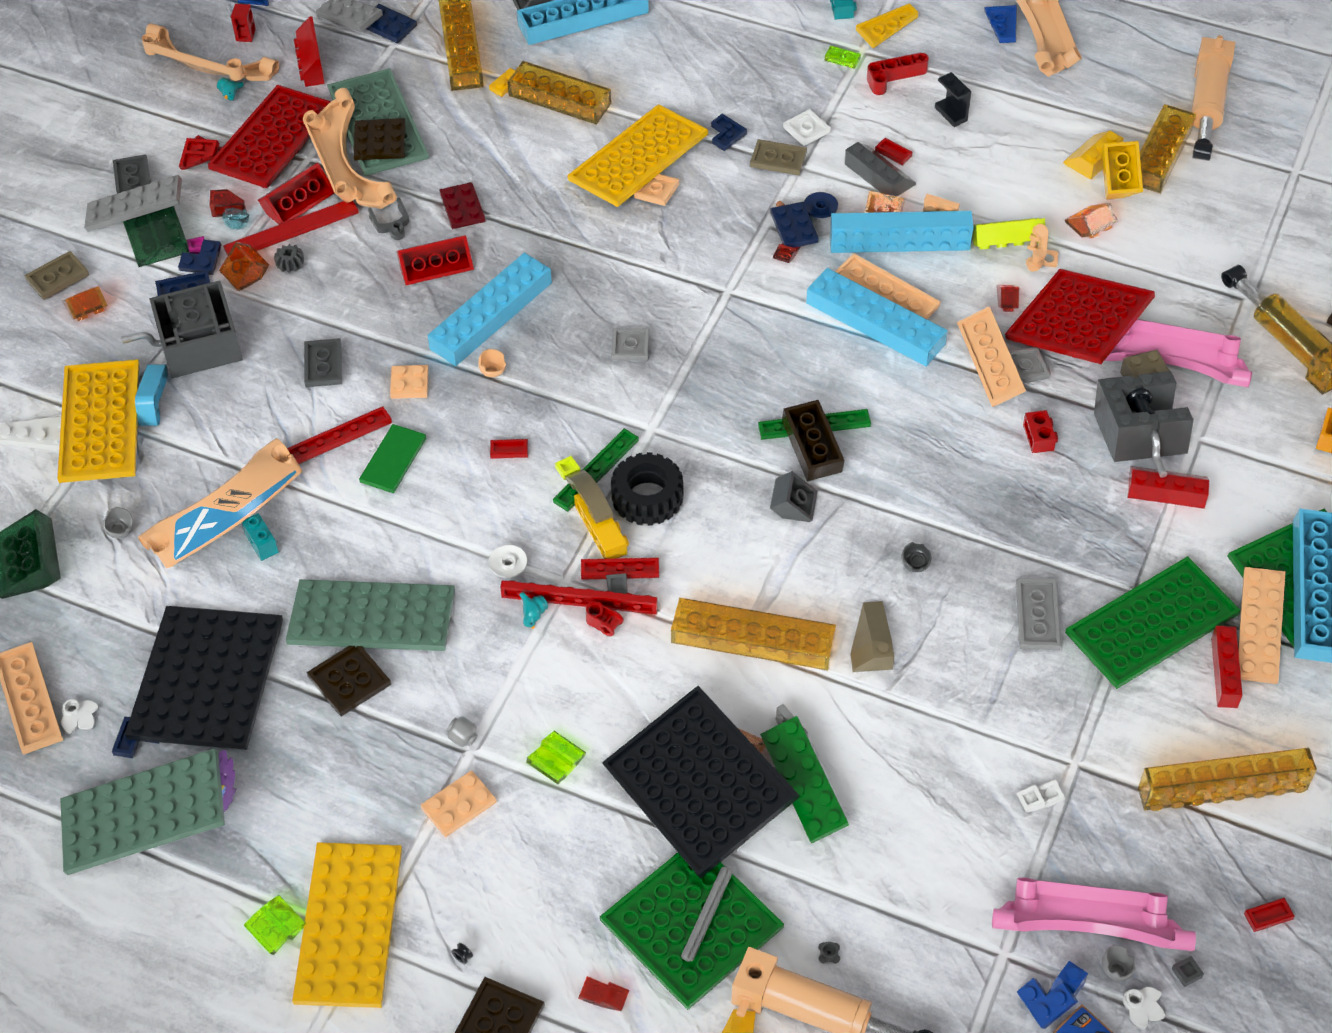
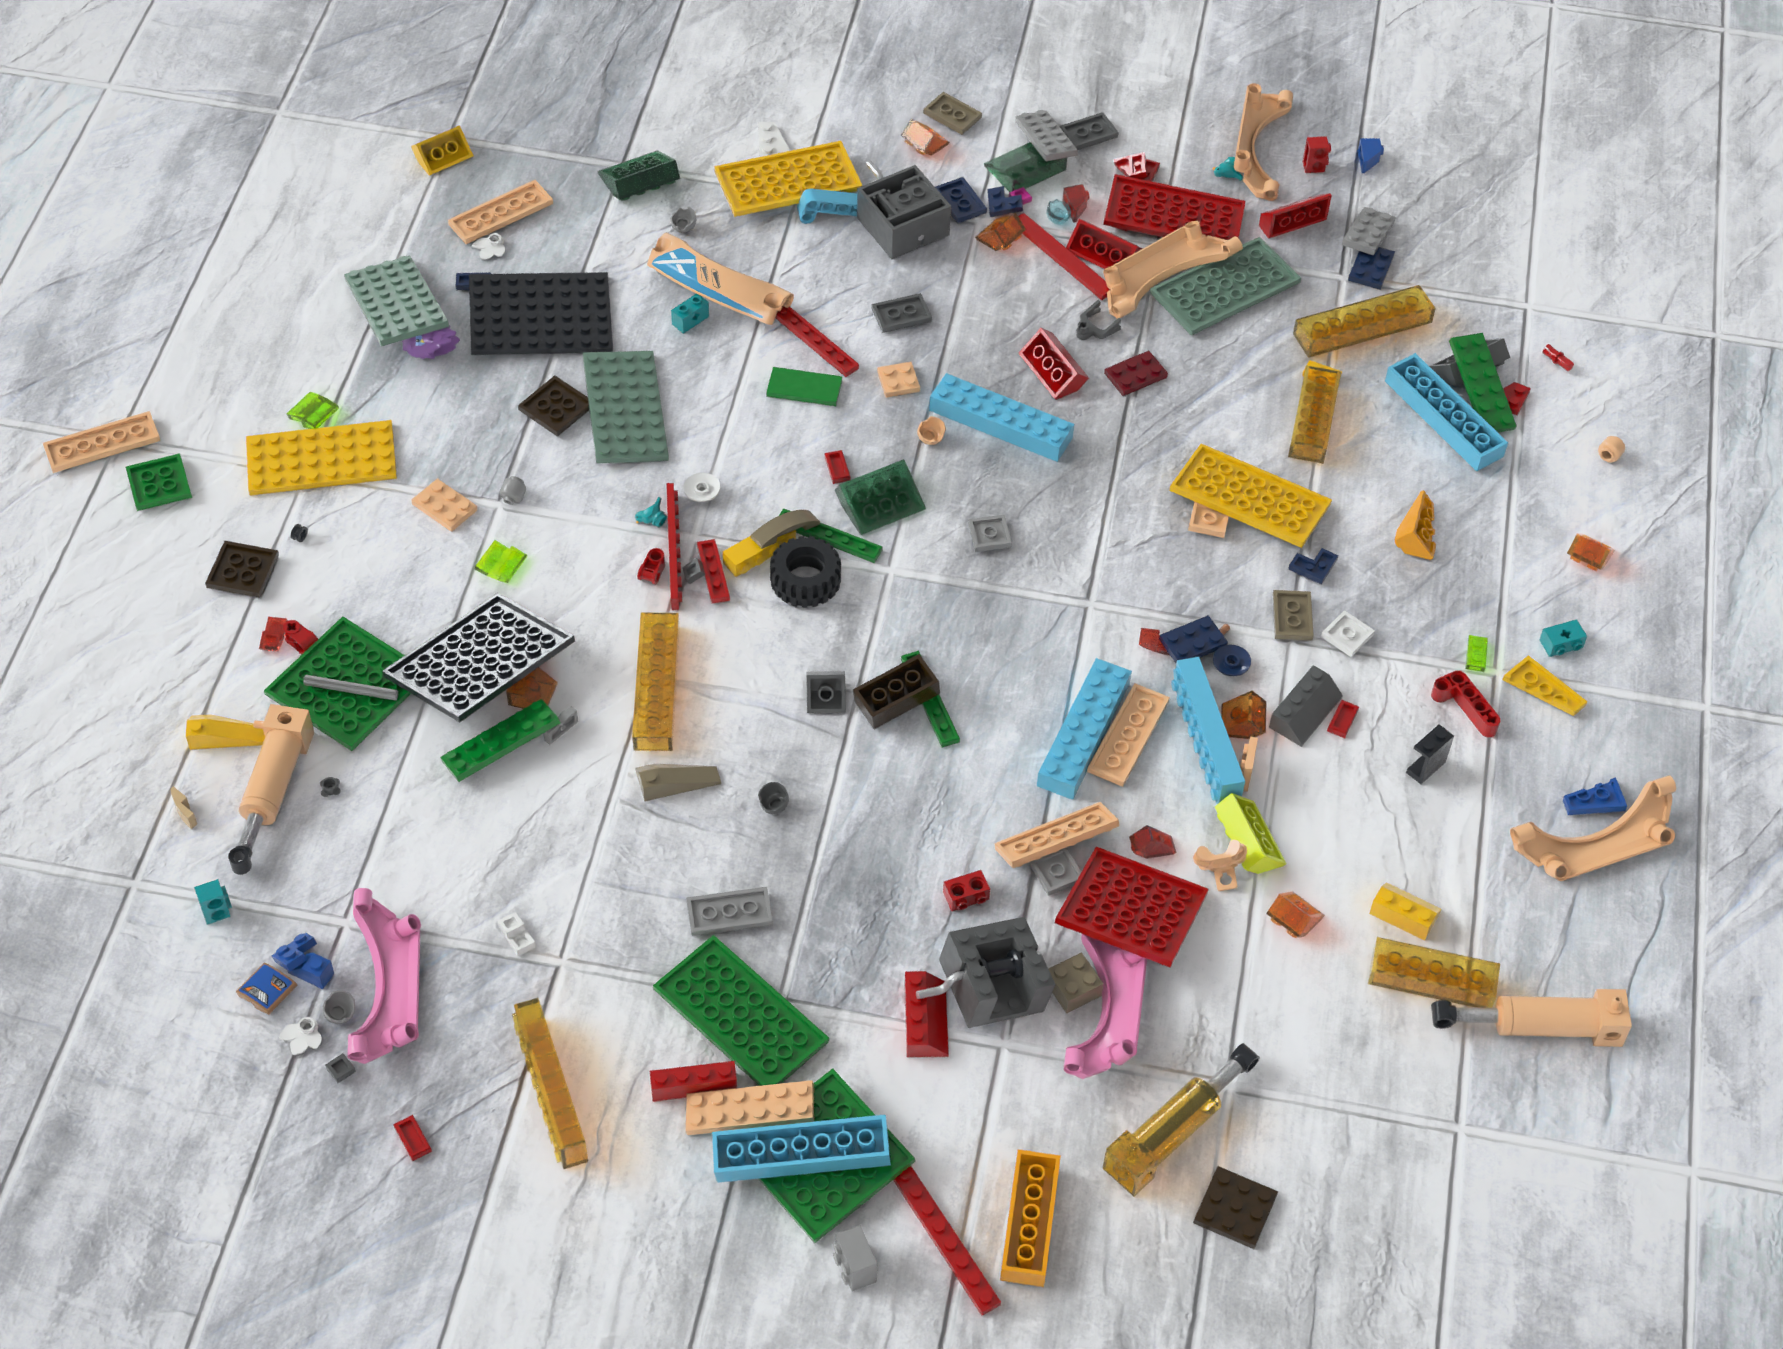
camera: 75 degrees right, 0 degrees up
(289, 258) = (1021, 260): dark grey gear -> none
(379, 139) = (1195, 289): dark brown plate -> none
(562, 418) = (880, 497): none -> clear green slope
(567, 466) = (822, 511): neon yellow plate -> none
(618, 964) = (298, 636): none -> red piece
(709, 61) = (1416, 529): none -> light orange wedge
(1121, 169) = (1368, 923): yellow slope -> none

